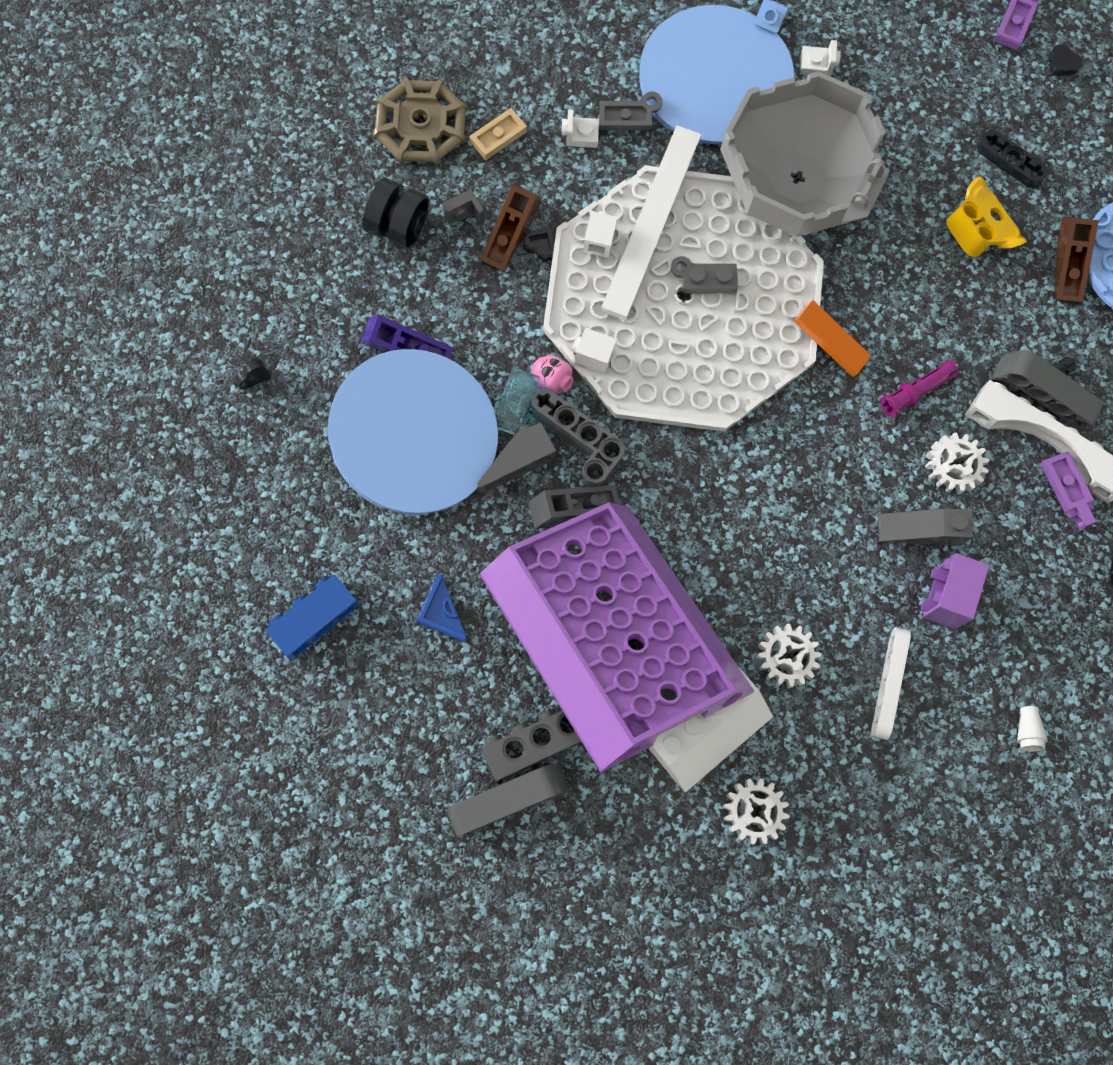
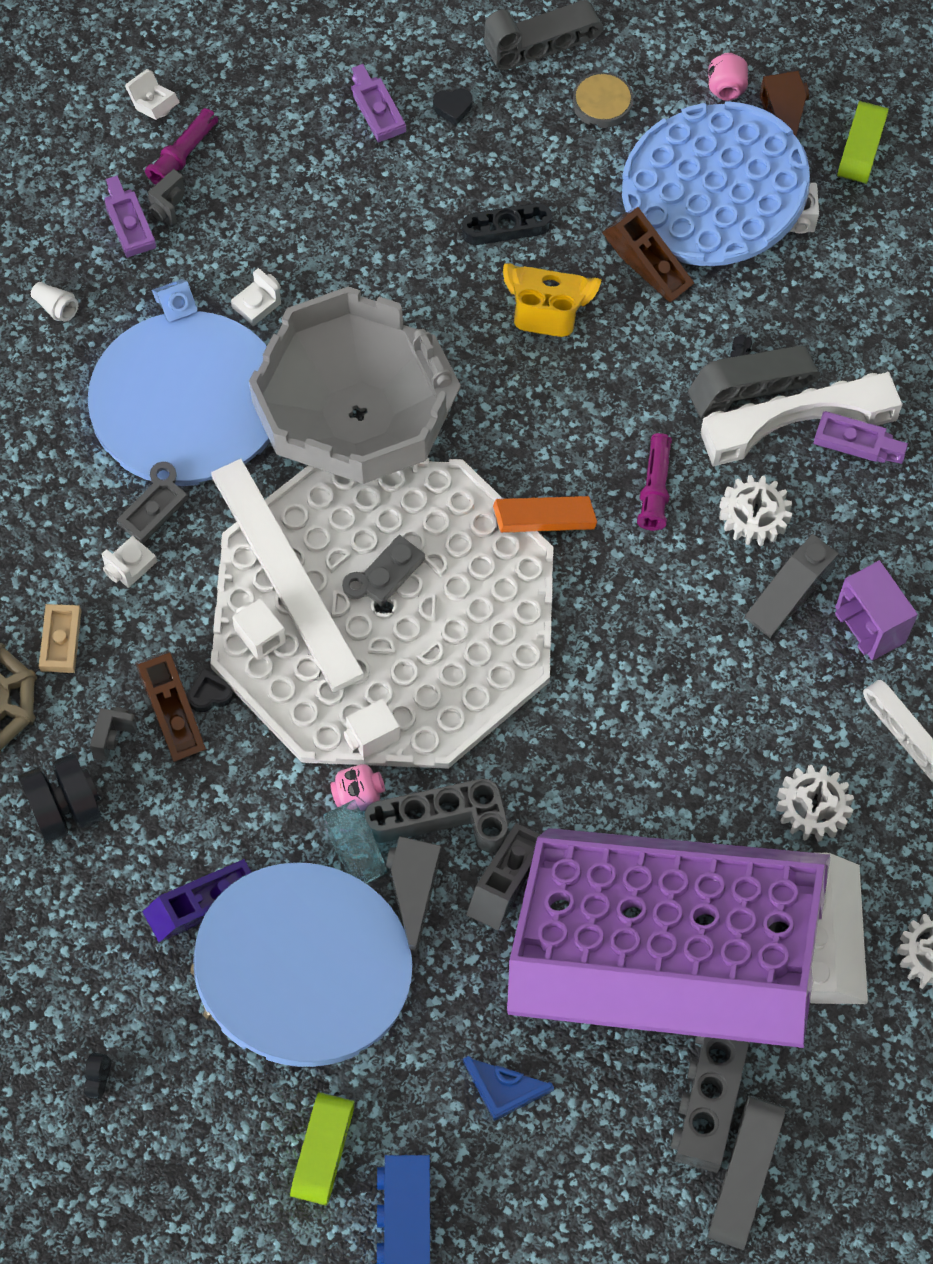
camera: 45 degrees left, 10 degrees down
(313, 536) = (322, 1148): none -> lime beam

